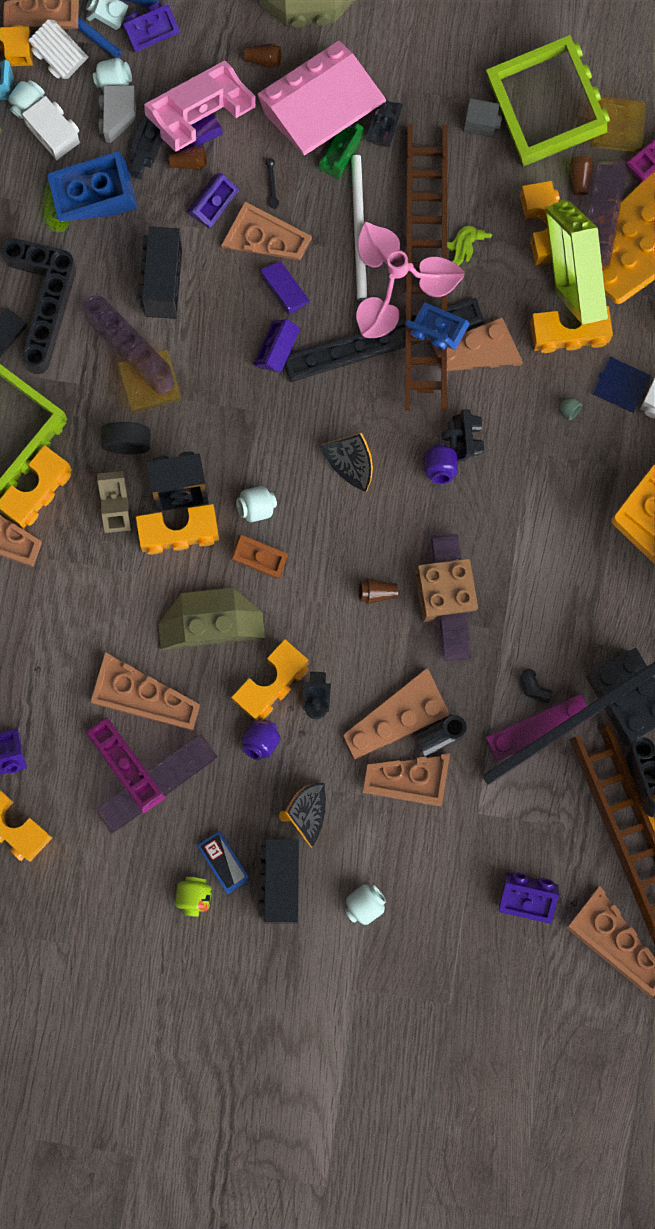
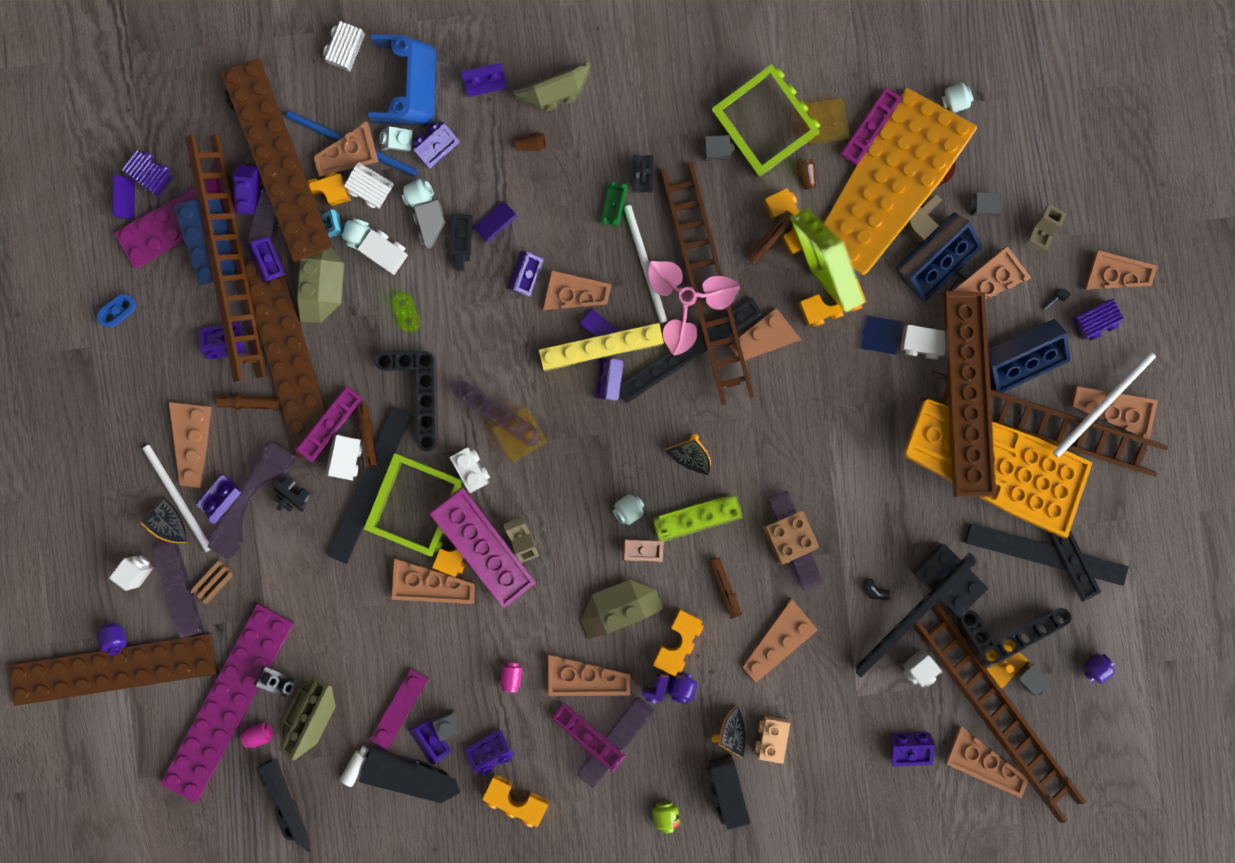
camera: 10 degrees left, 10 degrees up
(51, 666) = (510, 676): none -> dark pink brick
(63, 496) = (482, 547): none -> magenta plate
(76, 404) = (470, 470): none -> white brick
(93, 189) = (430, 294): blue slope -> none
(125, 438) = (515, 487): black tyre -> none
(156, 536) = (592, 540): light orange arch -> none
(161, 272) = (504, 348): black brick -> none
(177, 481) = (566, 515): black brick -> none
(189, 158) = (497, 245): reddish brown cone -> none
(196, 99) = (489, 197): bright pink bracket -> none
(223, 862) = (680, 785): slope -> none
(233, 301) = (601, 346): none -> light yellow arch
(234, 723) = (657, 692): none -> dark purple bracket
(274, 202) = (573, 262): black hinge -> none
(316, 695) = (716, 647): black hips -> none
(320, 98) = (588, 169): bright pink slope -> none
(335, 525) = (697, 517): none -> lime window
(351, 662) = (734, 611): none -> reddish brown pin
(356, 834) = (772, 739): none -> light nougat brick
(365, 904) = (793, 788): light aqua head -> none
(376, 591) = (736, 551): reddish brown cone -> none
(409, 780) = (801, 687): nougat wing -> none
(438, 326) = (731, 335): blue bracket -> none
(438, 735) = (813, 649): black piece -> none
(440, 464) = (760, 439): dark purple head -> none
(461, 437) = (770, 413): black hips -> none
(464, 241) = (730, 254): lime piece -> none
(516, 233) = (781, 225): none -> reddish brown pin
(518, 736) = (884, 621): magenta plate -> none
(566, 794) = (921, 669): none -> white brick
(570, 407) = (846, 365): sand green hinge -> none
(606, 204) = (835, 197): beam -> none

